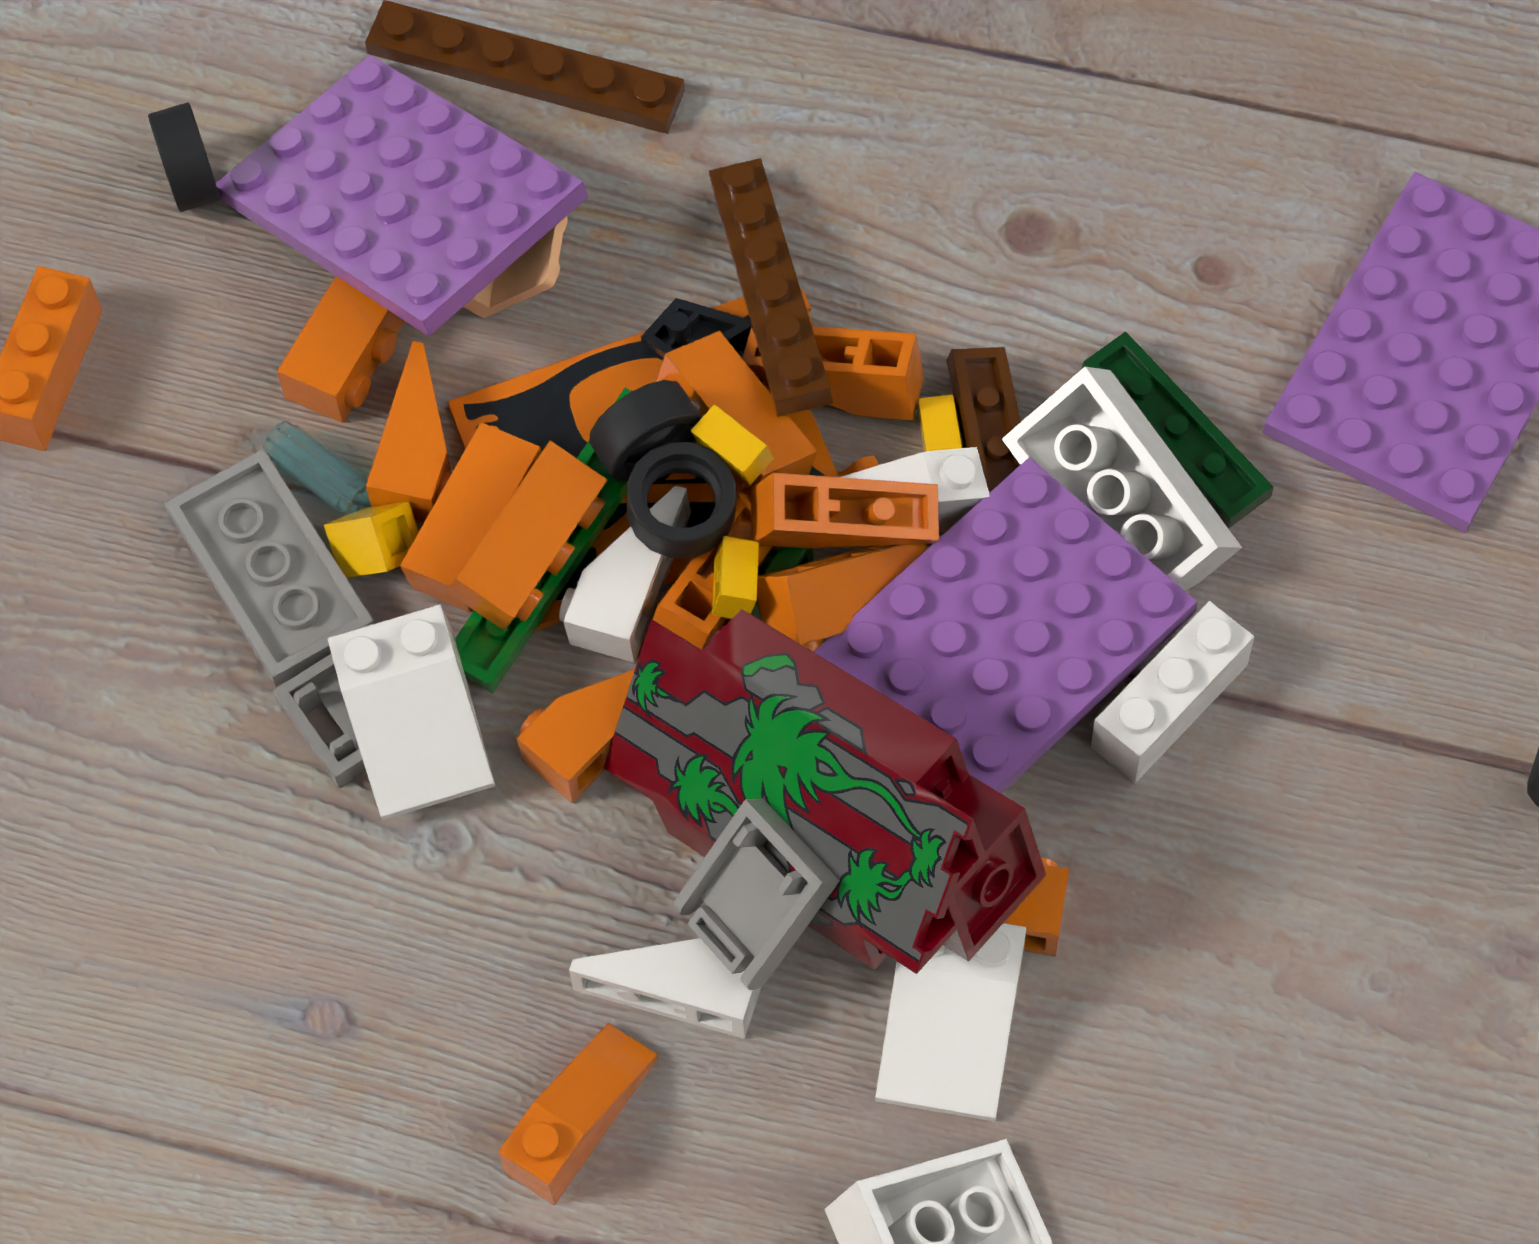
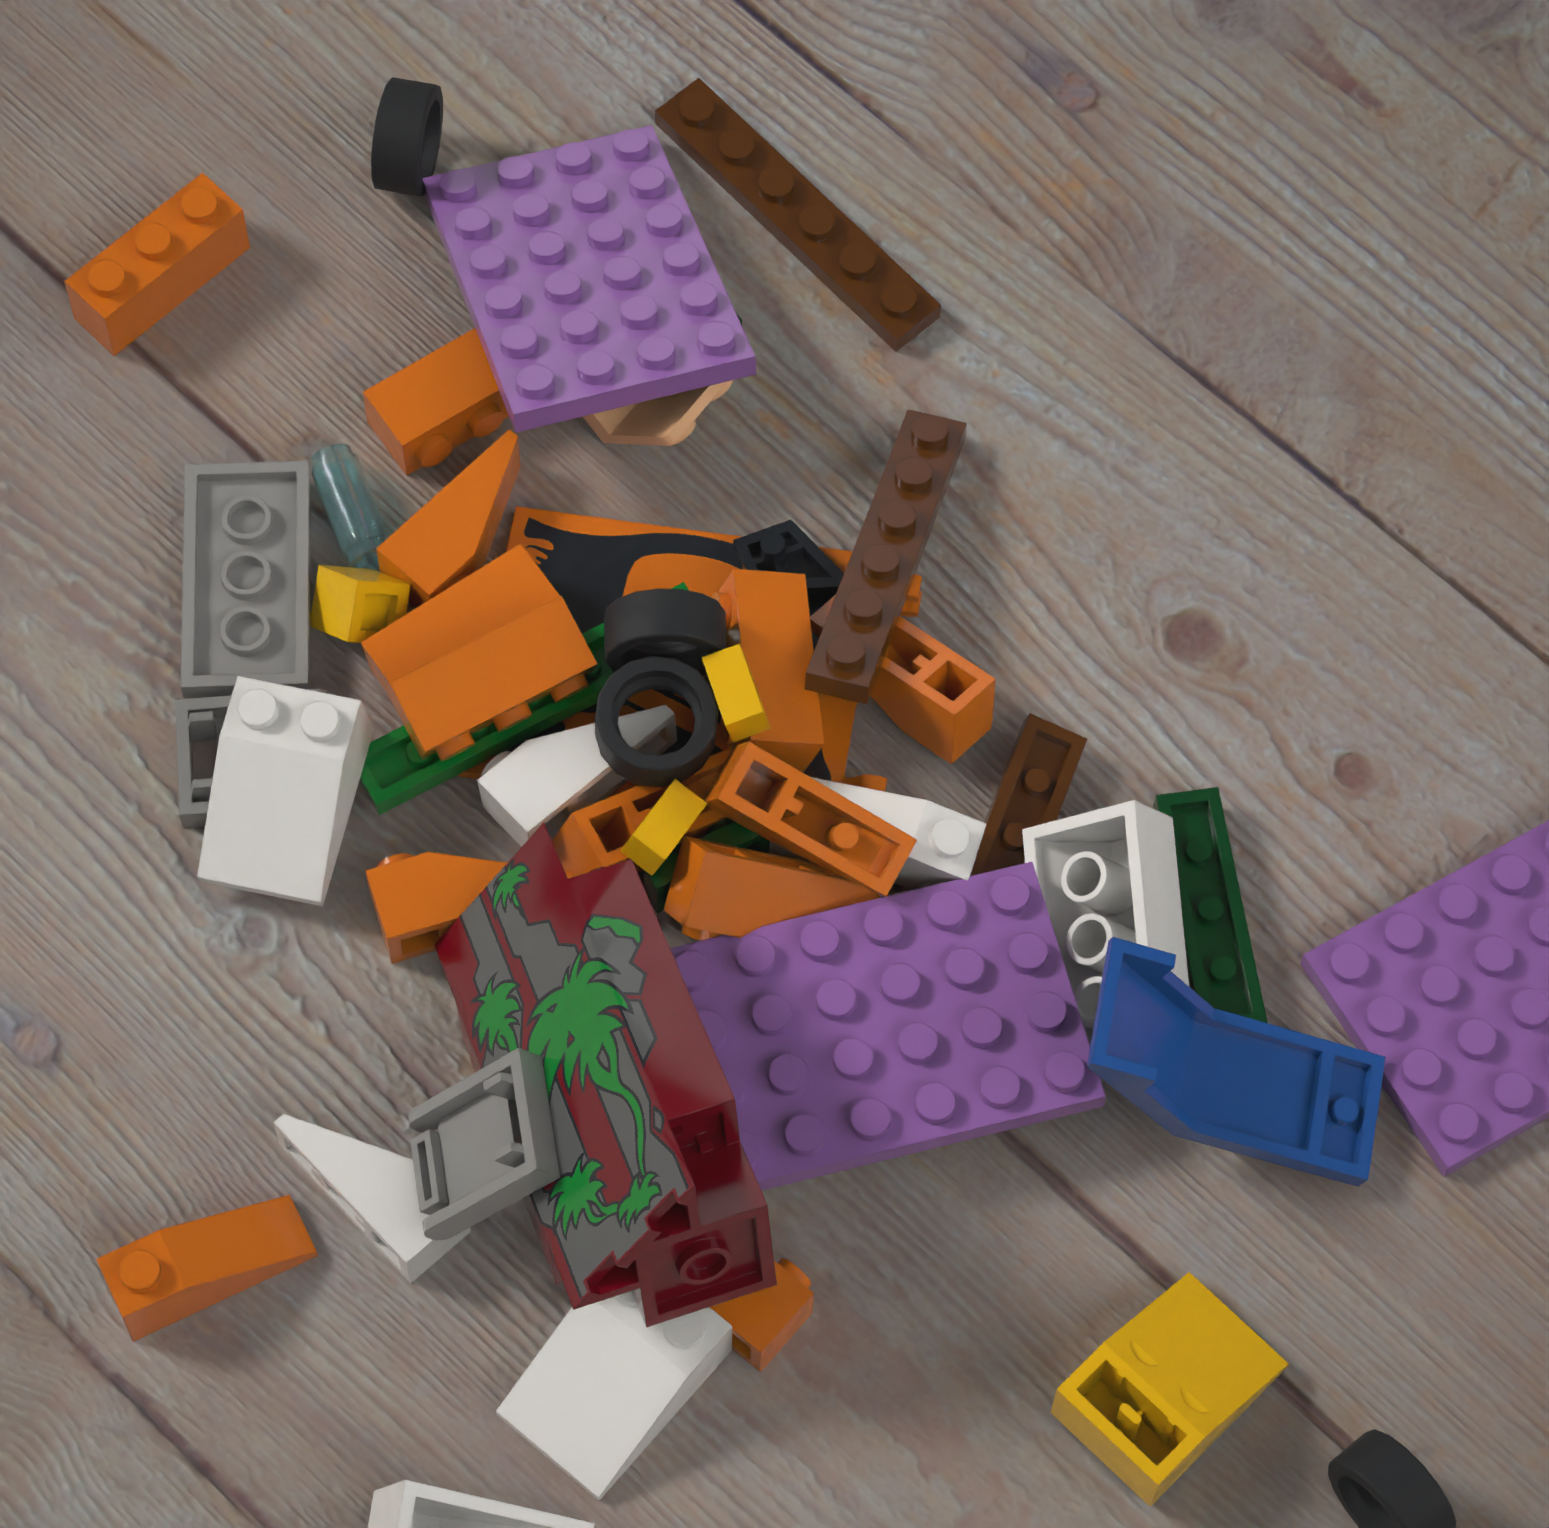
camera: 25 degrees right, 0 degrees up
(938, 423) = (974, 783): yellow piece -> none
(1171, 692) = (1033, 1173): white brick -> none
(1286, 535) = (1230, 1075): none -> blue windscreen
(1370, 797) = (1166, 1387): none -> yellow slope

